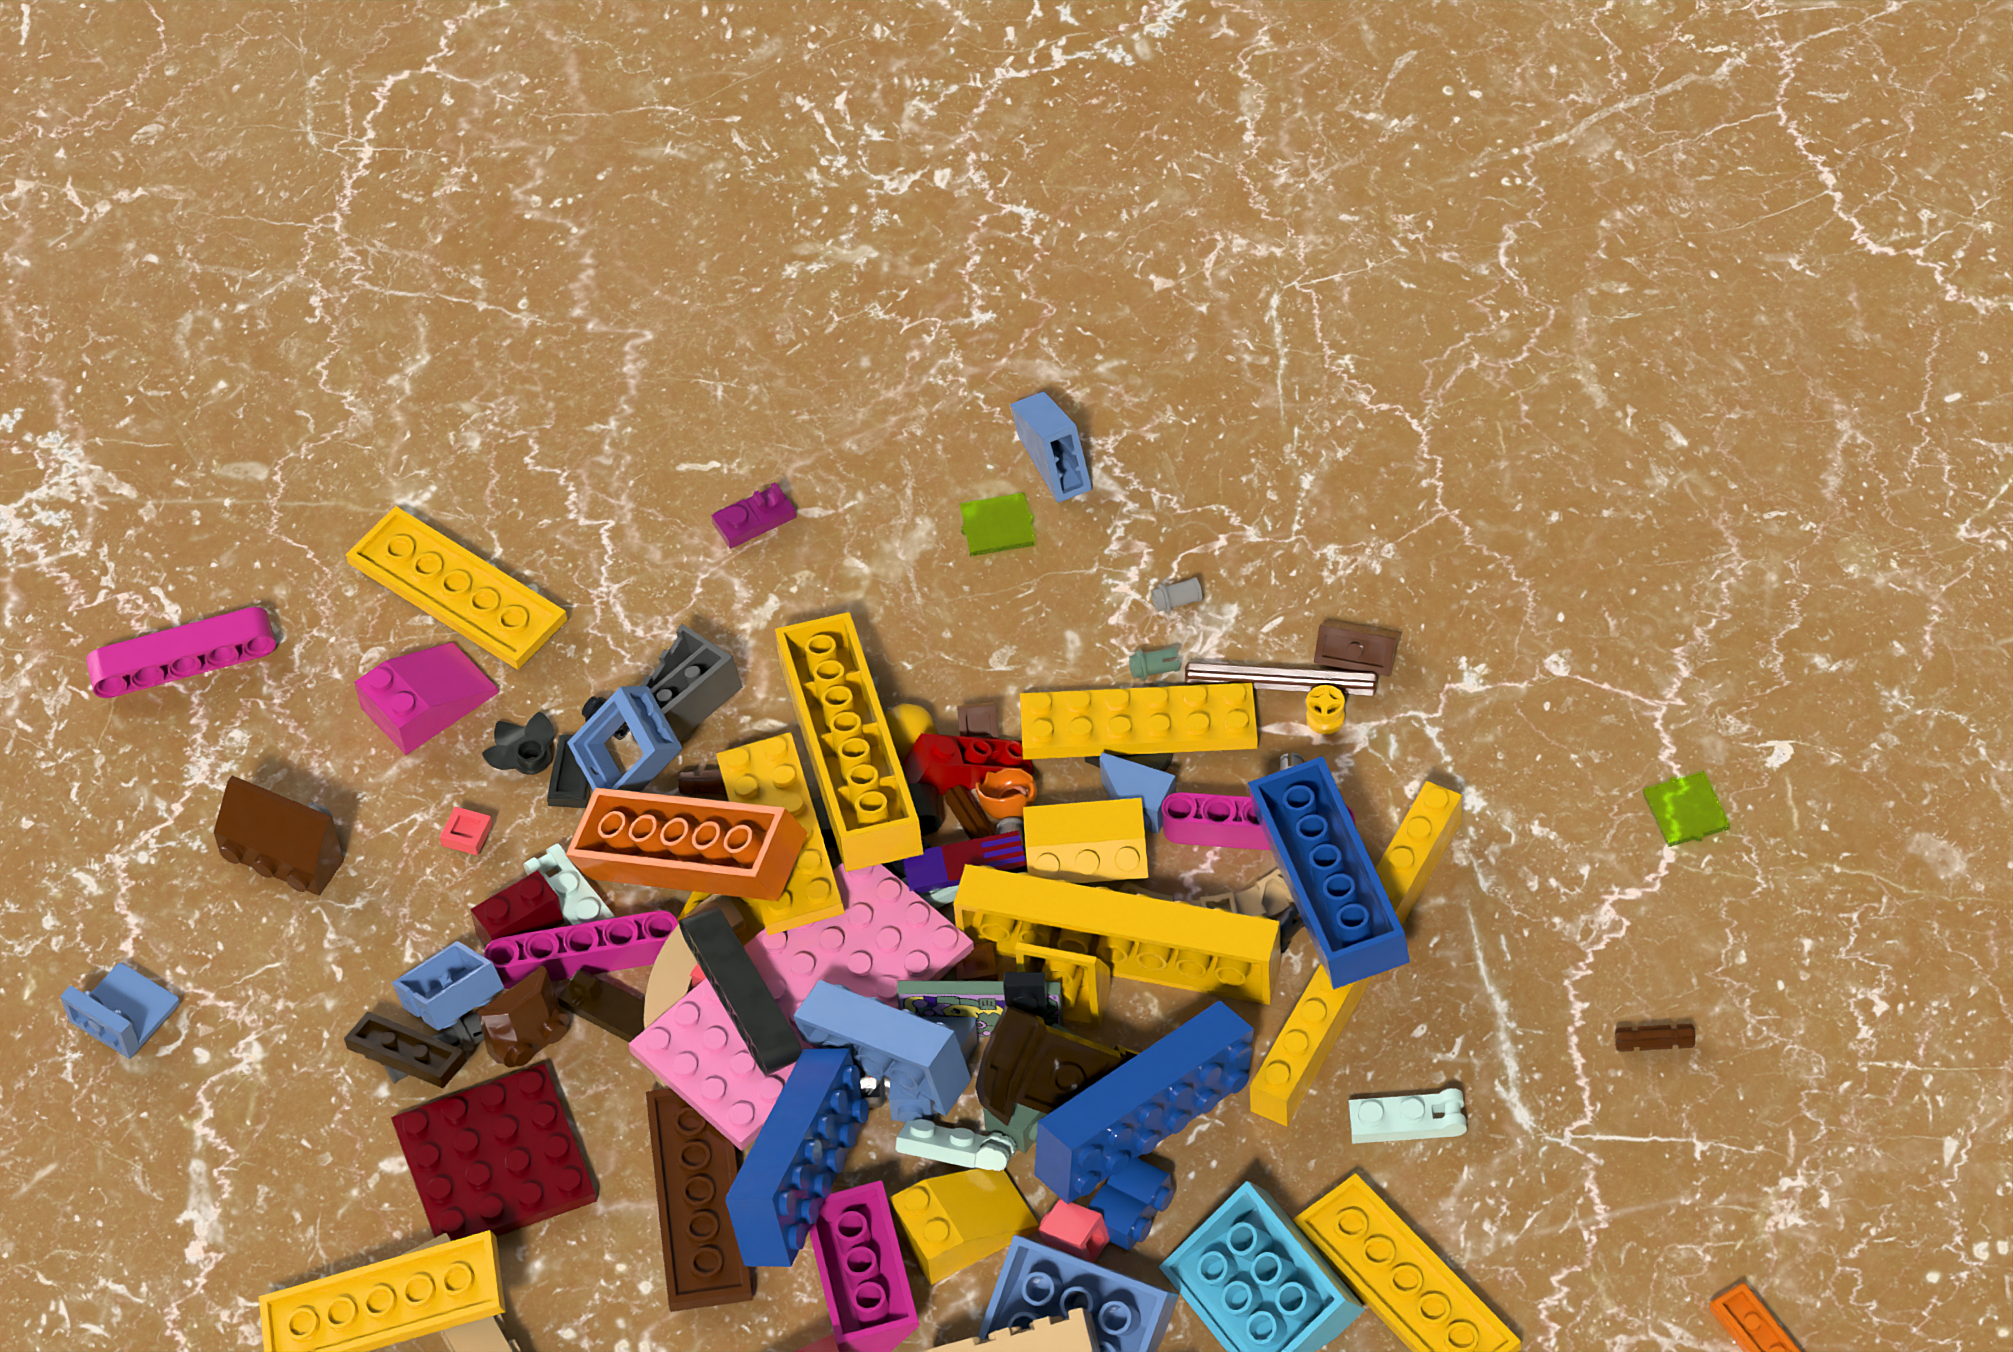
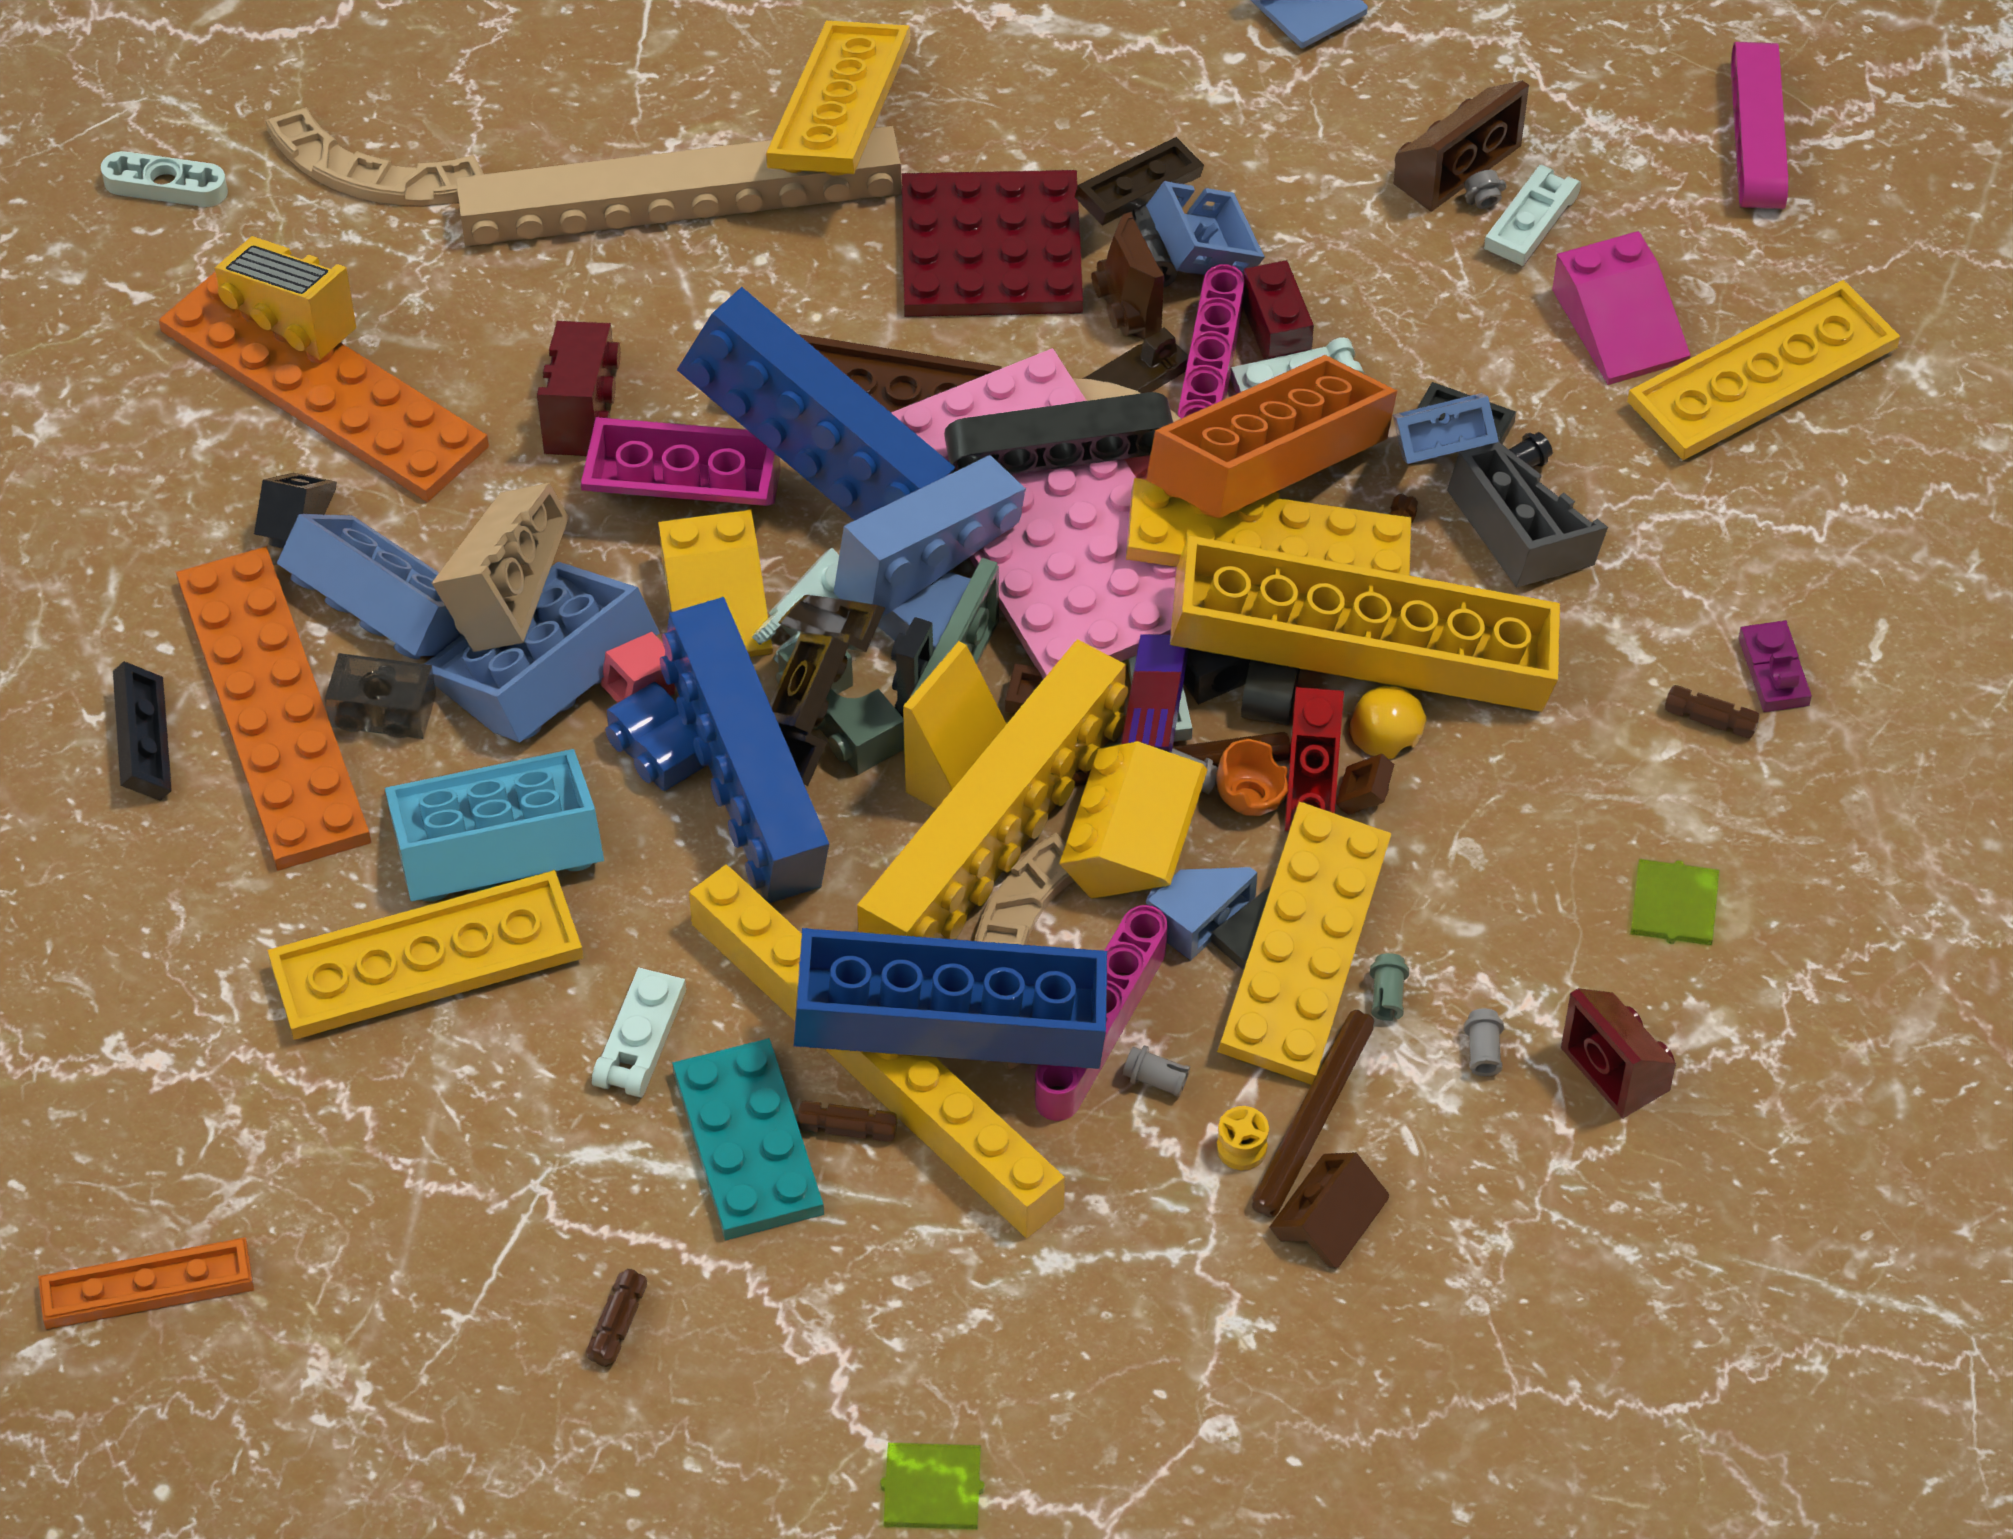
camera: 105 degrees right, 0 degrees up
(334, 780) = (1531, 215): none -> light aqua plate
(466, 831) = (1415, 304): coral plate -> none
(518, 744) = (1517, 381): pearl dark grey plate -> none
(814, 541) = (1712, 711): none -> reddish brown axle
(1052, 445) = (1767, 971): medium blue slope -> none
(1158, 509) = (1616, 1051): none -> dark red slope
(1421, 955) = (847, 1121): none -> reddish brown axle
(1464, 1015) = (747, 1139): none -> teal plate

